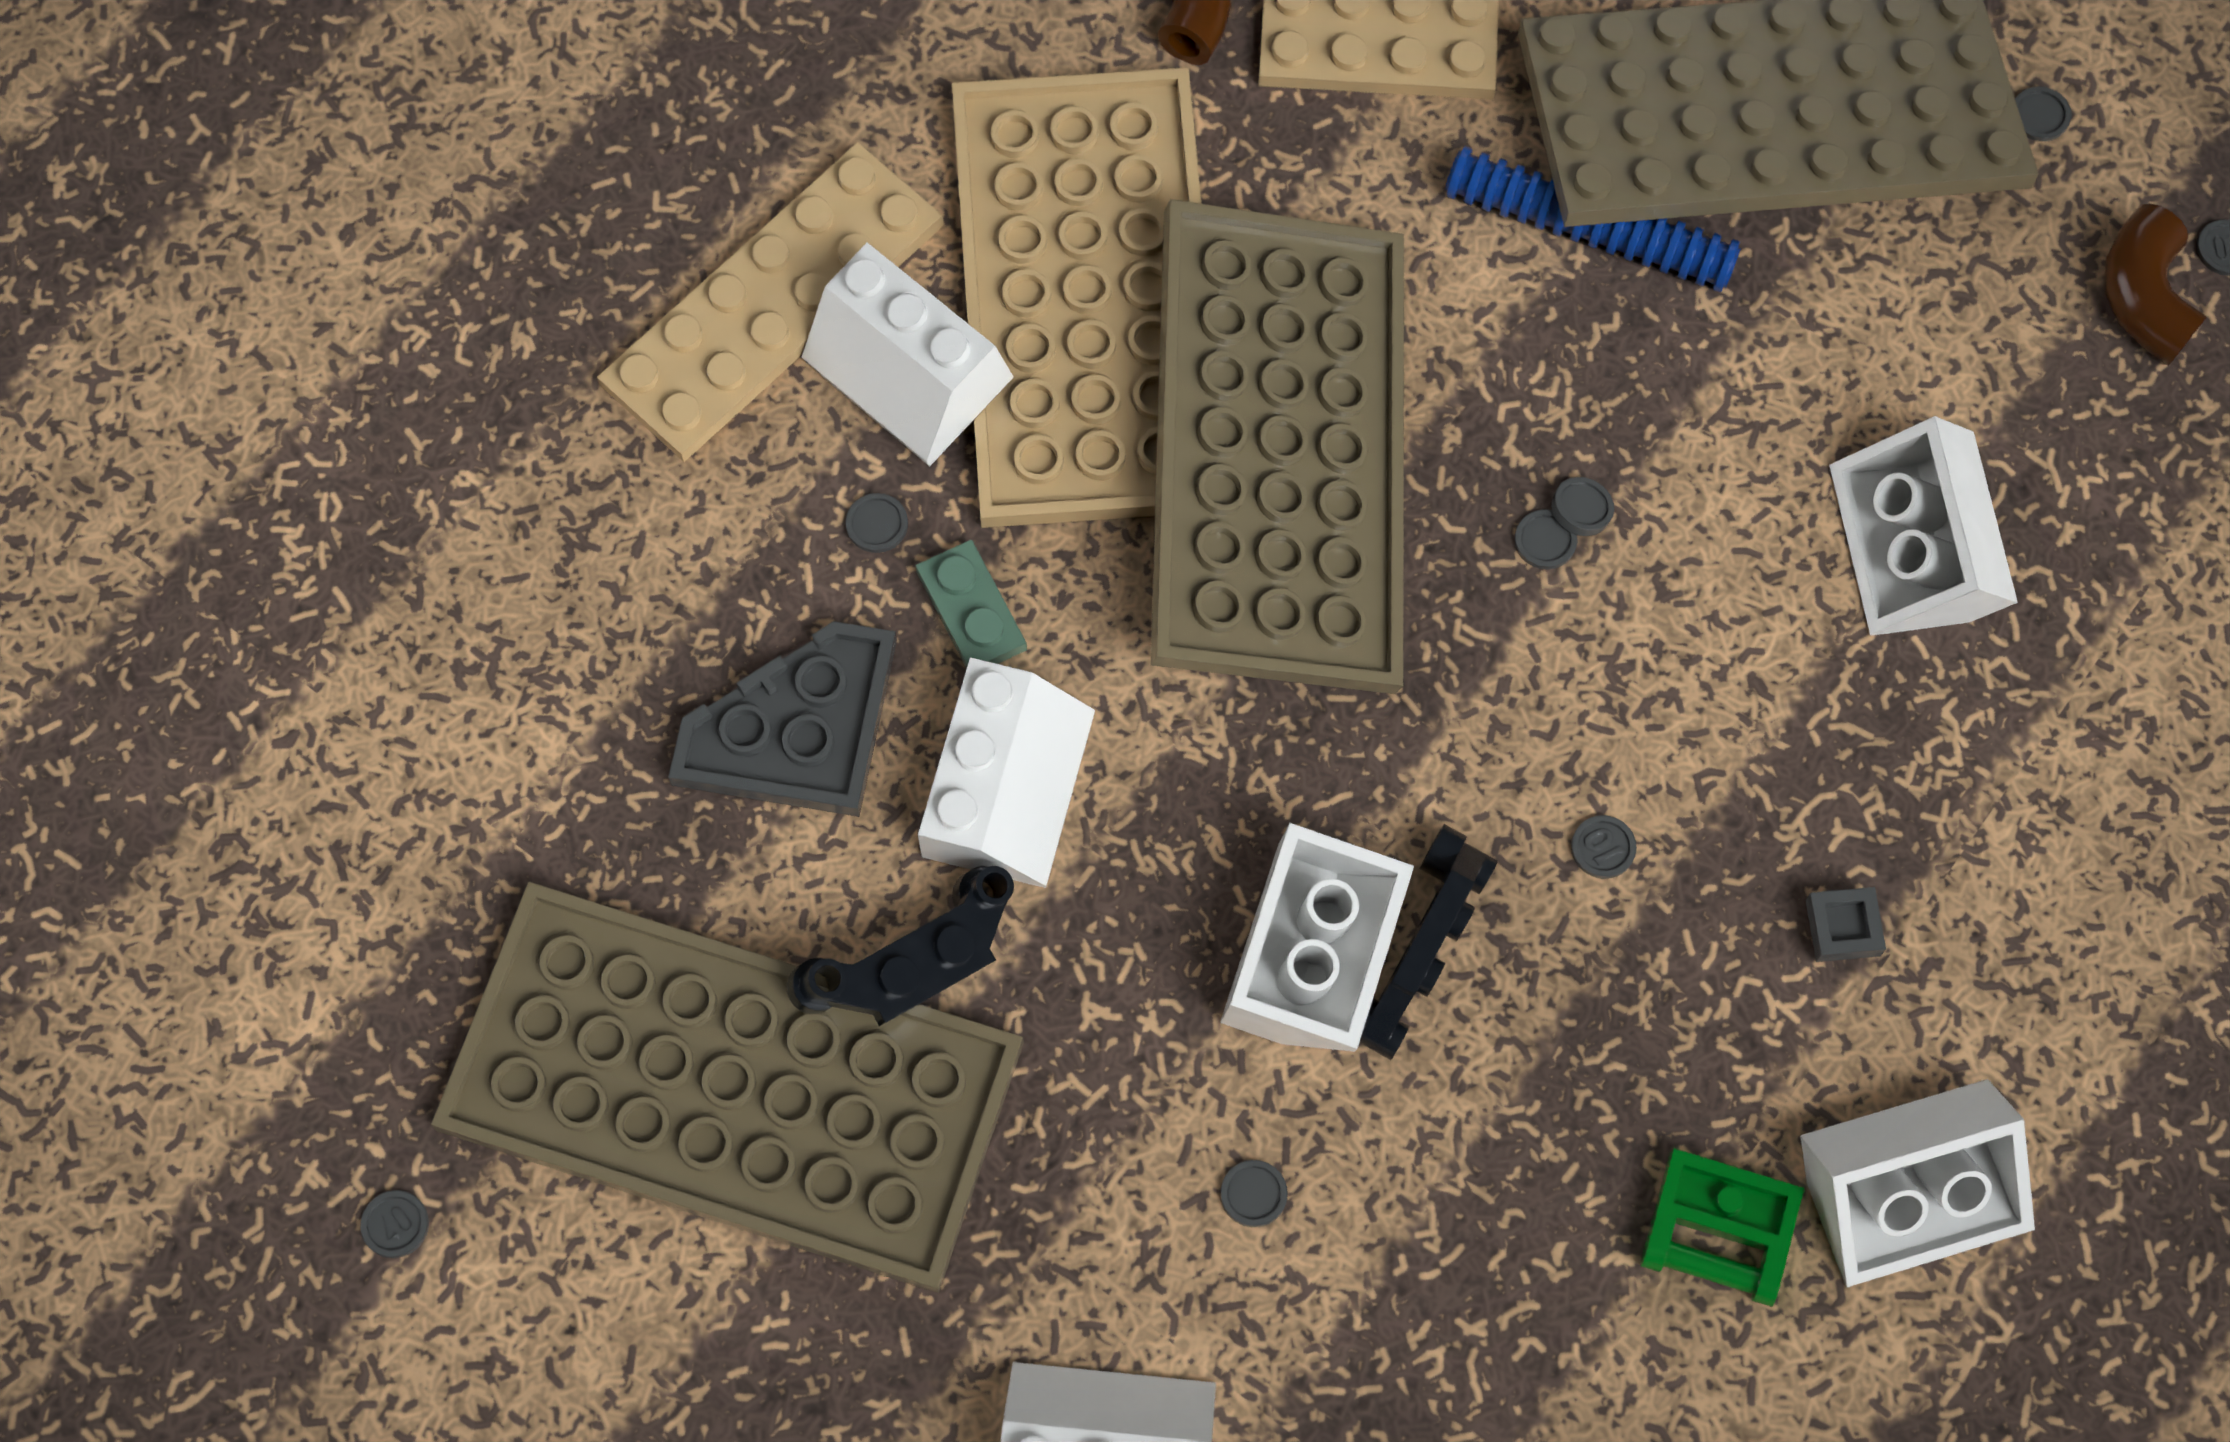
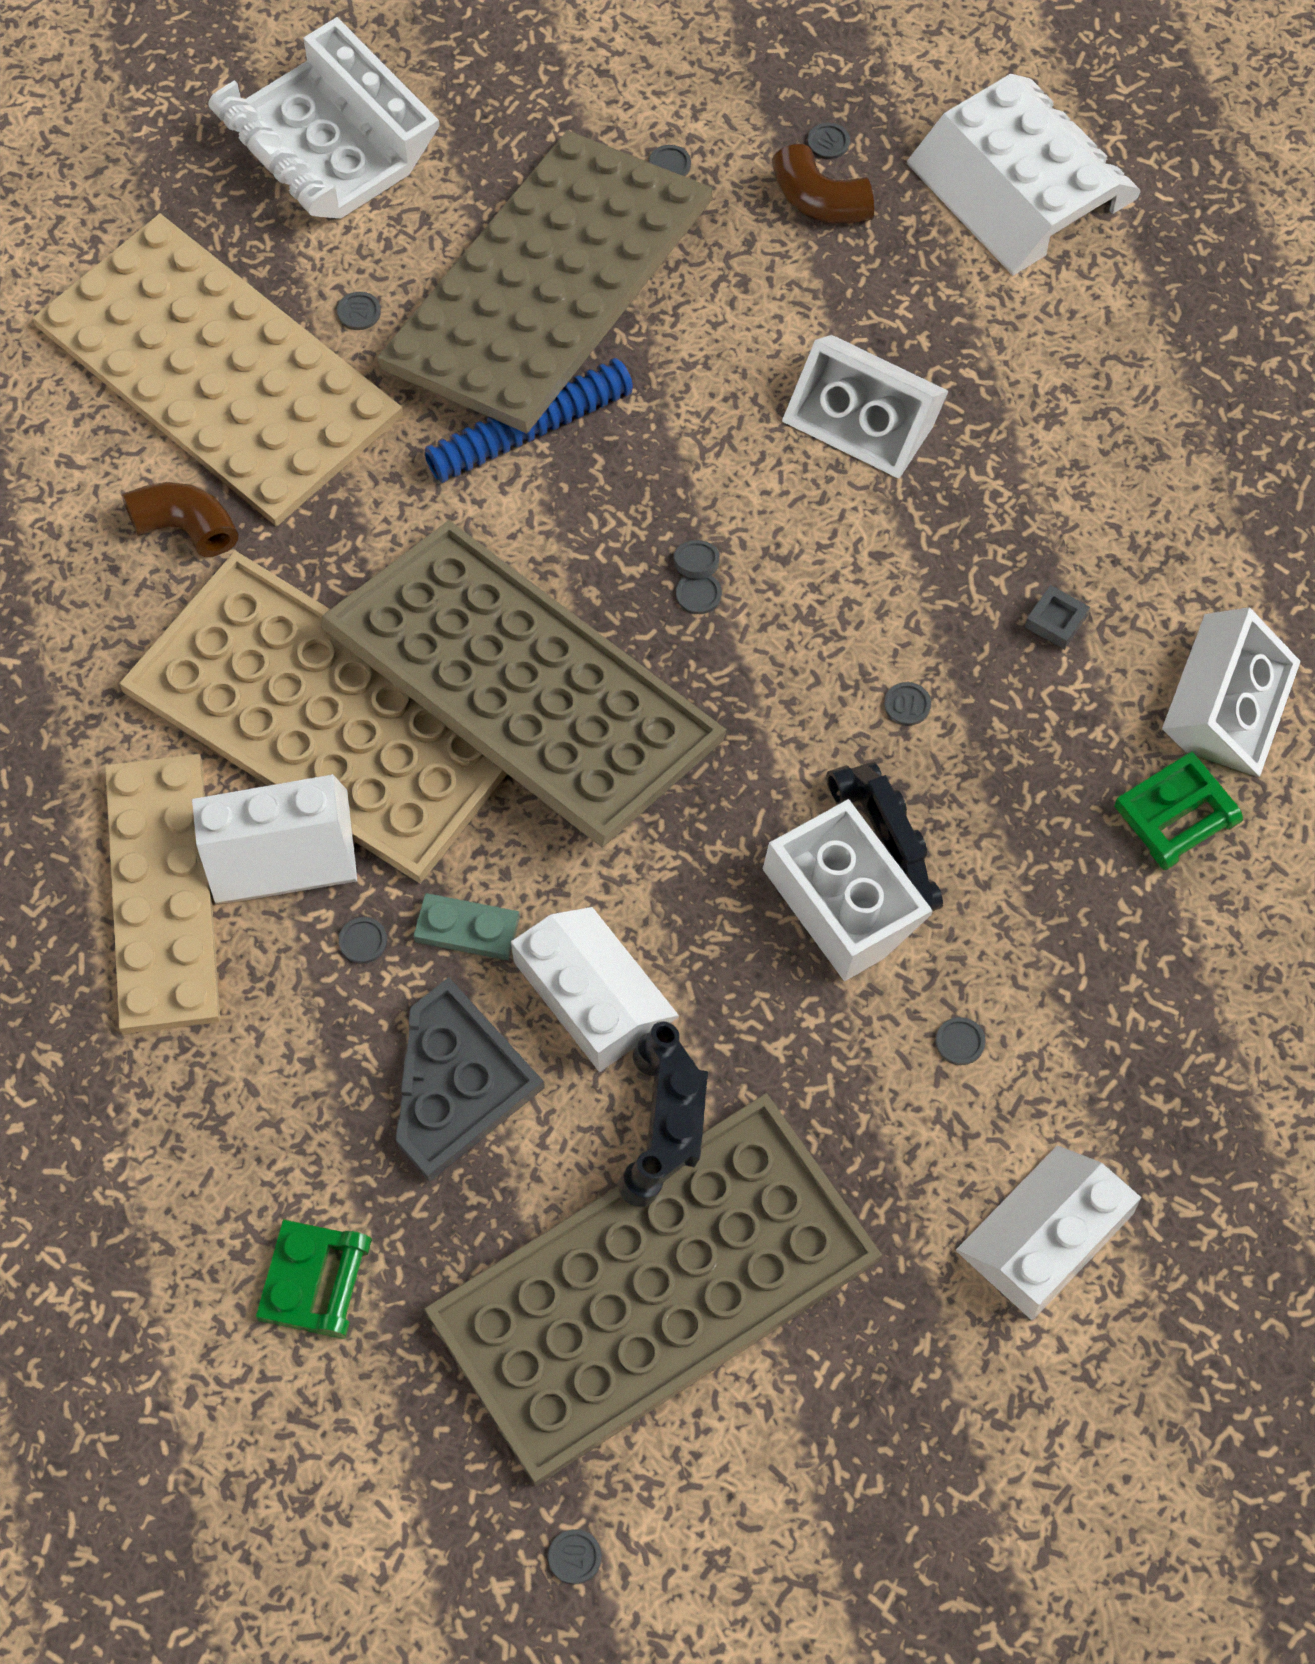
camera: 50 degrees left, 5 degrees down
(478, 739) = (297, 1275): none -> green plate

